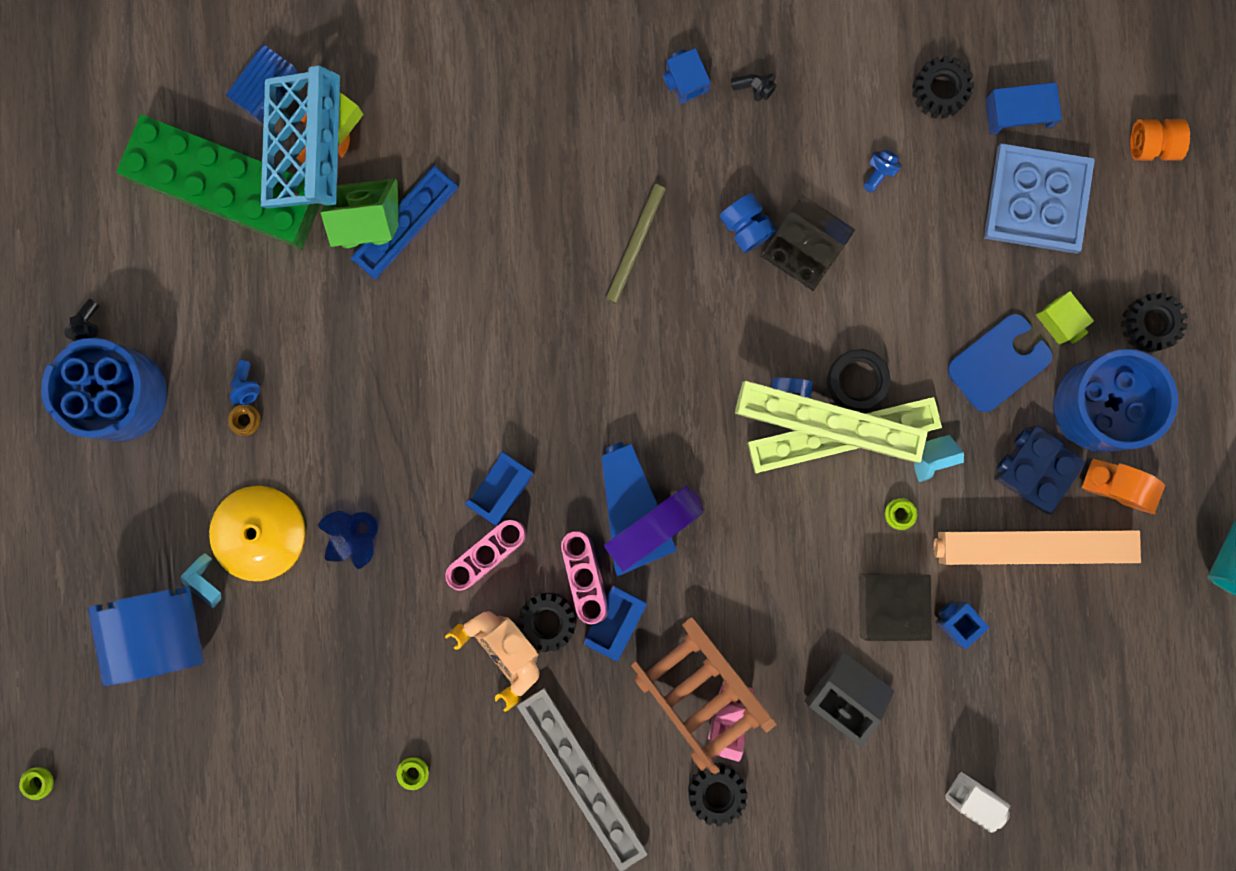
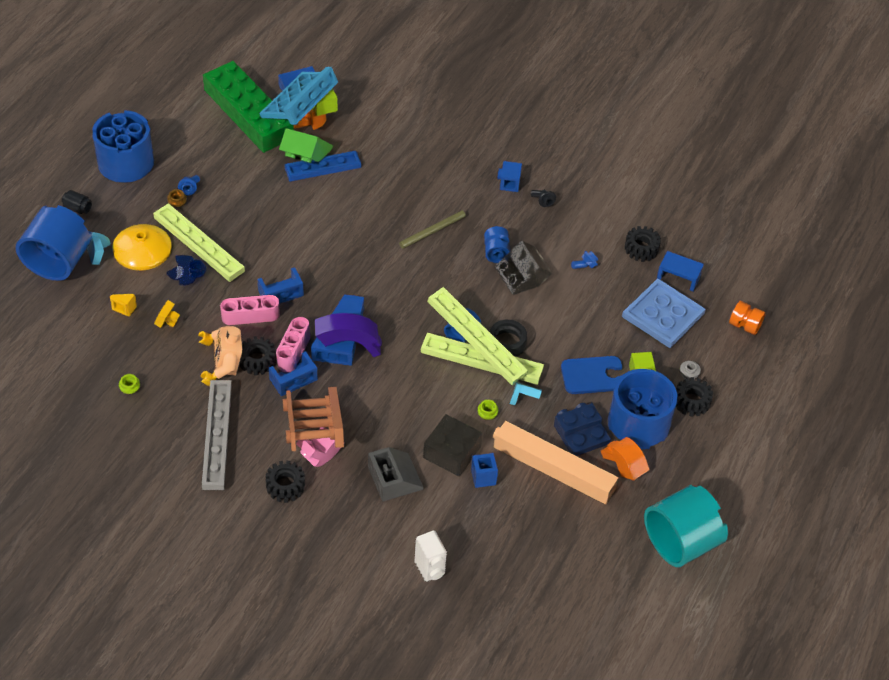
camera: 25 degrees right, 35 degrees down
(111, 521) = (76, 202): none -> black brick
(312, 655) = (123, 303): none -> yellow slope
(331, 480) = (199, 242): none -> yellowish green plate
(380, 636) = (167, 315): none -> yellow tile
(1116, 280) = (686, 372): none -> light grey plate

